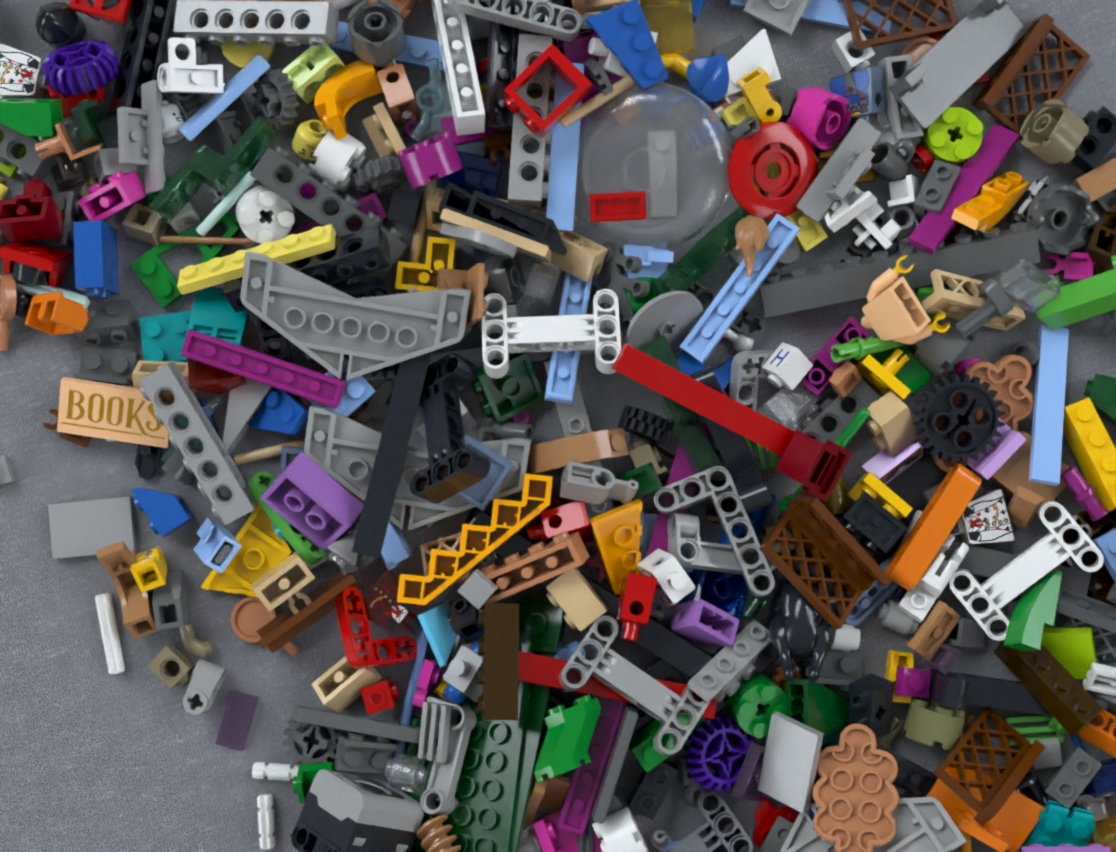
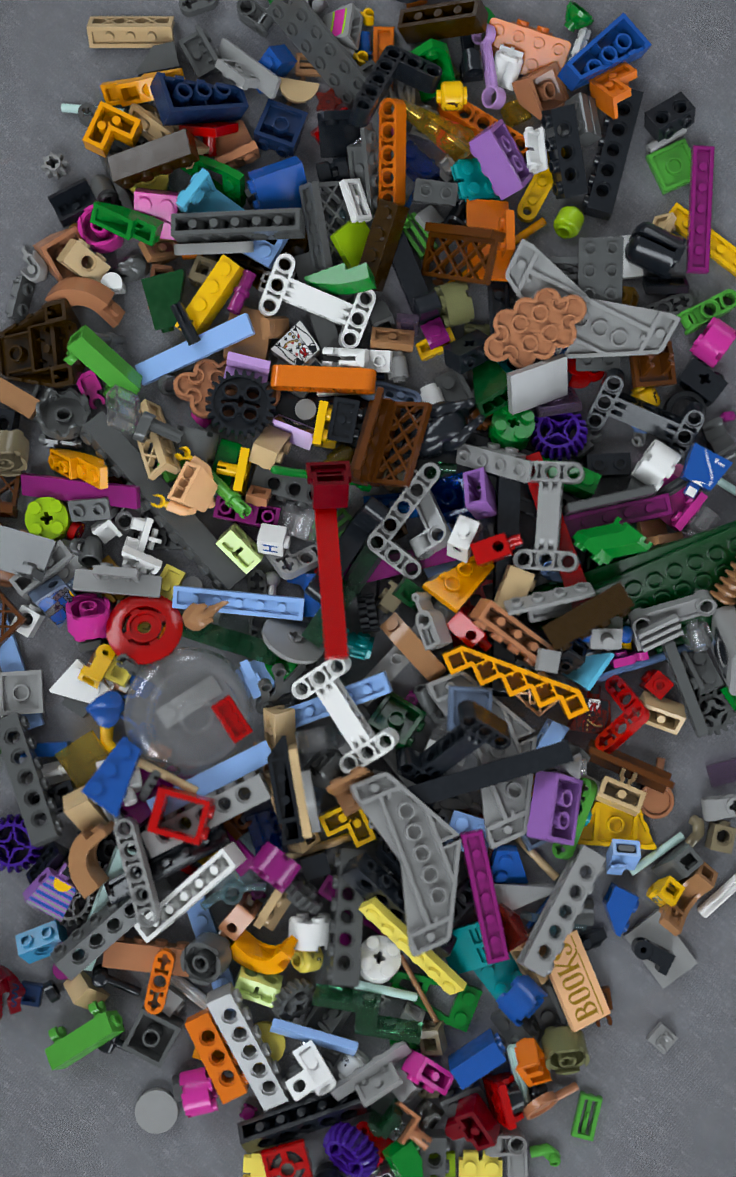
camera: 120 degrees left, 0 degrees up
(48, 358) = (564, 1050): none -> olive brick
(101, 510) = (646, 949): none -> black leg
(129, 343) = (522, 999): none -> blue brick
(195, 585) = (651, 857): none -> light aqua bar
(539, 627) = (549, 603): none -> light grey bracket
(616, 391) = (359, 645): none -> teal plate
(798, 325) = (239, 548): none -> yellowish green brick
(909, 488) = (305, 409): none -> light grey tile
(1085, 409) = (185, 323): none -> black axle

